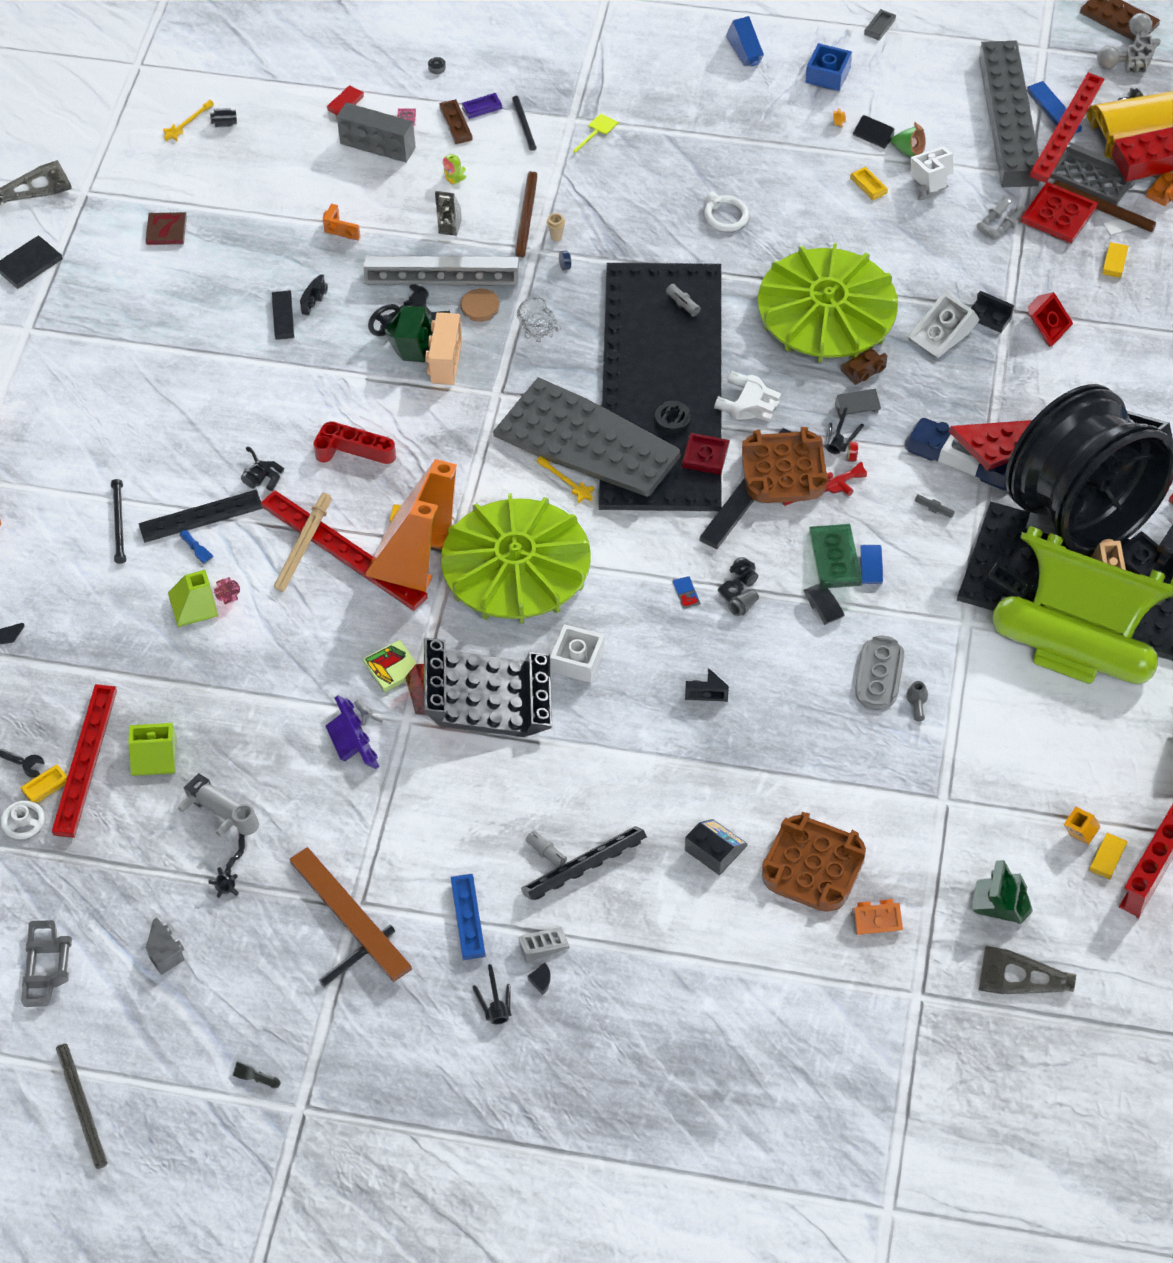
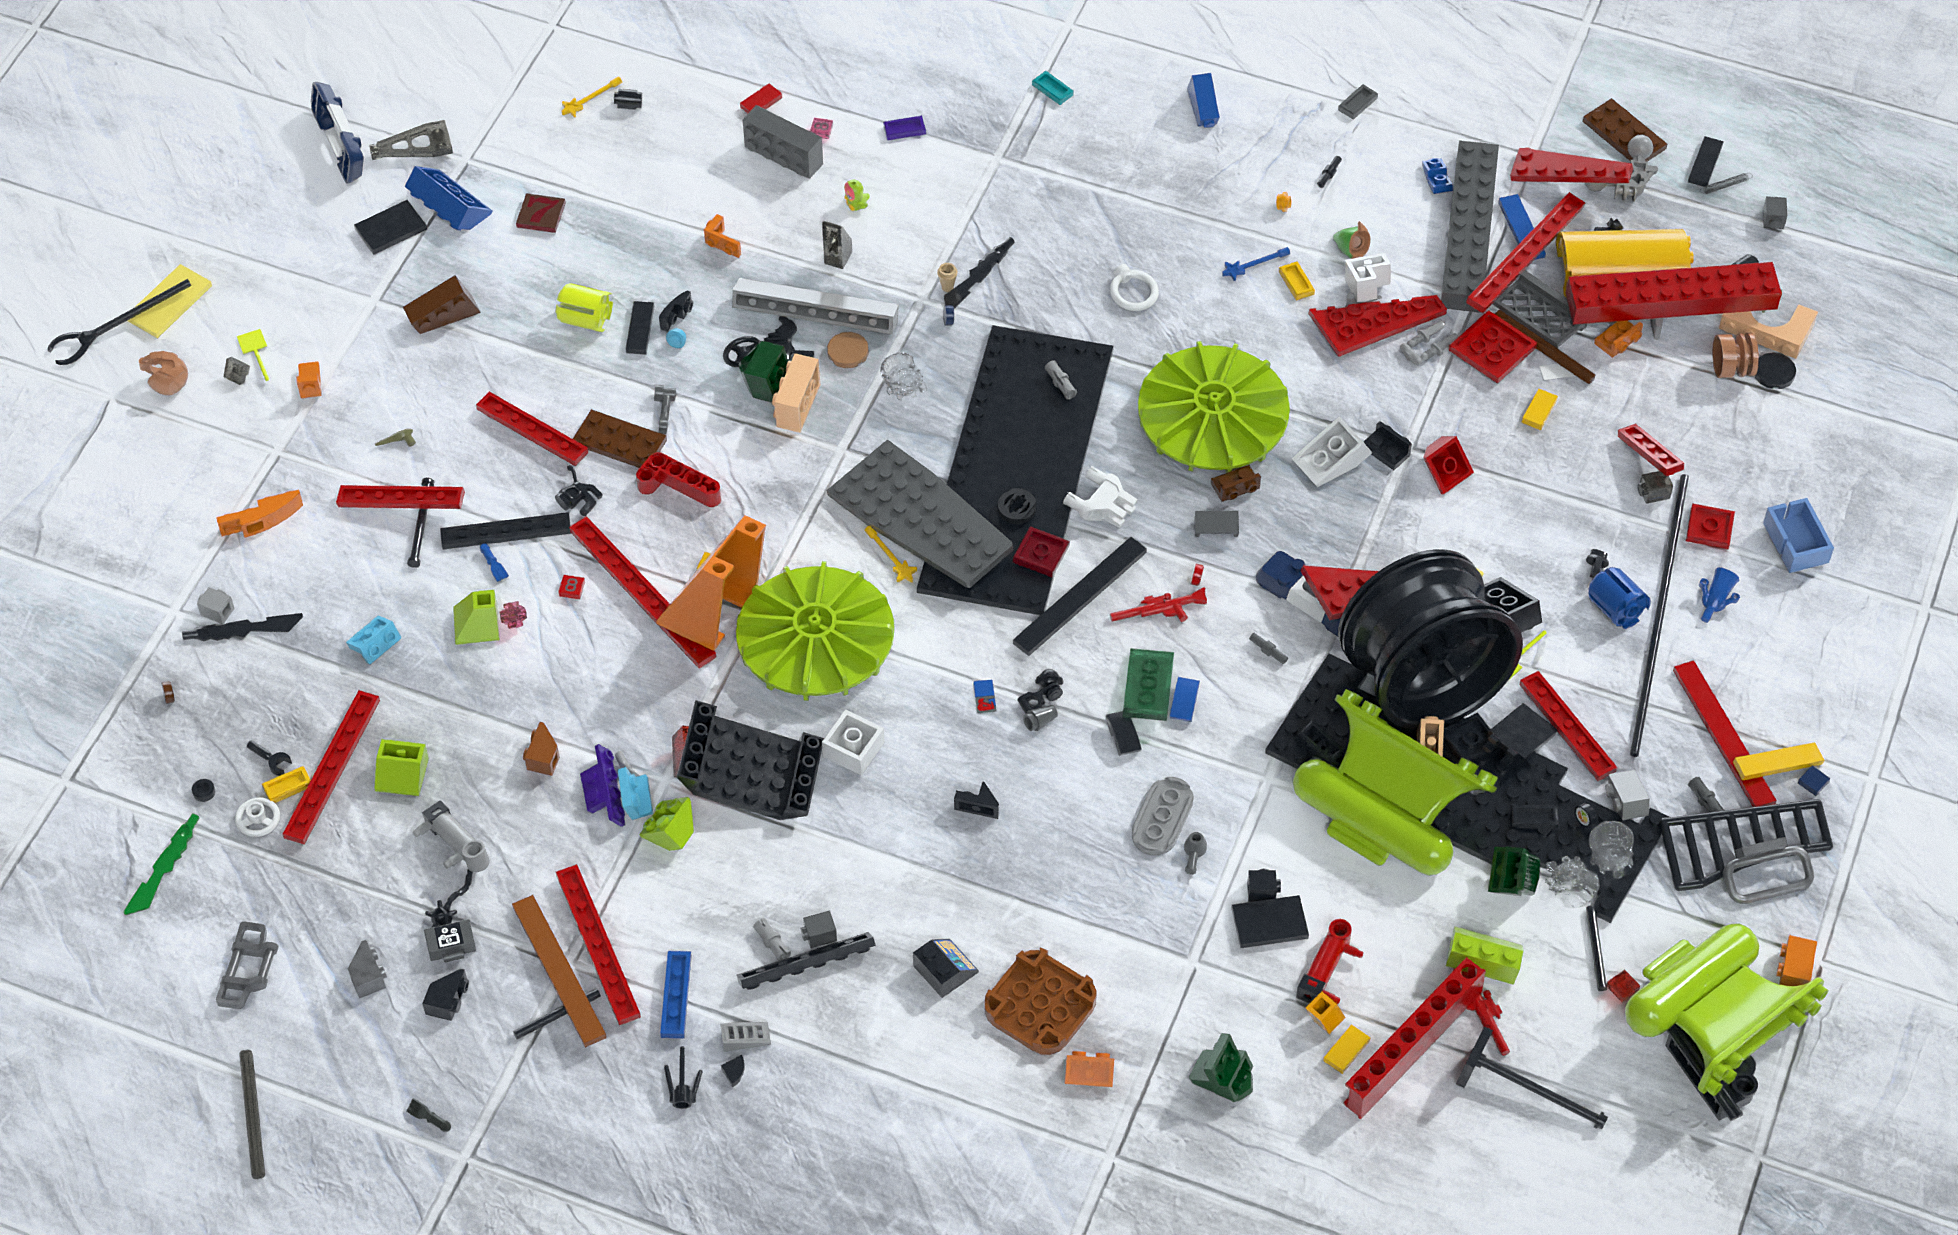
camera: 10 degrees right, 0 degrees up
(75, 228) = (446, 198): none -> blue slope
(79, 446) = (399, 436): none -> olive bar
(93, 323) = (441, 306): none -> reddish brown wedge
(94, 500) = (400, 497): none -> red plate
(99, 634) = (374, 639): none -> medium azure bracket
(204, 419) = (532, 428): none -> red plate
(228, 294) = (583, 307): none -> neon yellow cylinder
(238, 904) = (450, 941): none -> dark grey piece
(244, 957) = (445, 994): none -> black slope
(275, 556) = (571, 587): none -> red tile
(285, 712) = (543, 751): none -> dark orange slope
(287, 416) = (619, 438): none -> reddish brown plate
(303, 541) = (603, 574): tan axle -> none
(319, 318) = (676, 338): none -> medium azure plate
(322, 370) = (665, 396): none -> dark grey brick
(382, 883) = (598, 945): none -> red plate
(384, 736) = (635, 794): none -> medium azure bracket
(390, 665) = (660, 721): tile -> none
(423, 758) = (670, 824): none -> lime slope
(436, 65) = (867, 74): tile -> none
(455, 121) = (872, 141): reddish brown tile -> none
(524, 123) = (944, 154): black bar -> none
(526, 214) = (921, 257): reddish brown axle -> none
(581, 220) = (978, 273): none -> black sword
(589, 831) = (819, 929): none -> dark grey brick
(600, 124) = (1027, 168): neon yellow piece -> none
(606, 52) = (1052, 87): none -> teal tile
(784, 466) = (1120, 579): dark orange tile -> none
(811, 182) = (1237, 269): none -> blue piece
(828, 67) = (1286, 142): blue brick -> none
(835, 442) = (1183, 561): black plant -> none
(872, 86) = (1329, 171): none -> black bar
(874, 131) = (1317, 223): black slope -> none
(945, 208) = (1370, 322): none -> red wing
(967, 76) = (1436, 175): none -> blue slope
(990, 719) = (1262, 885): none -> black brick
(994, 967) = (1196, 1143): clear smoke plate -> none
(1005, 751) = (1270, 921): none -> black tile
(1068, 777) = (1326, 961): none -> red piece
(1082, 51) = (1548, 166): none -> red wing

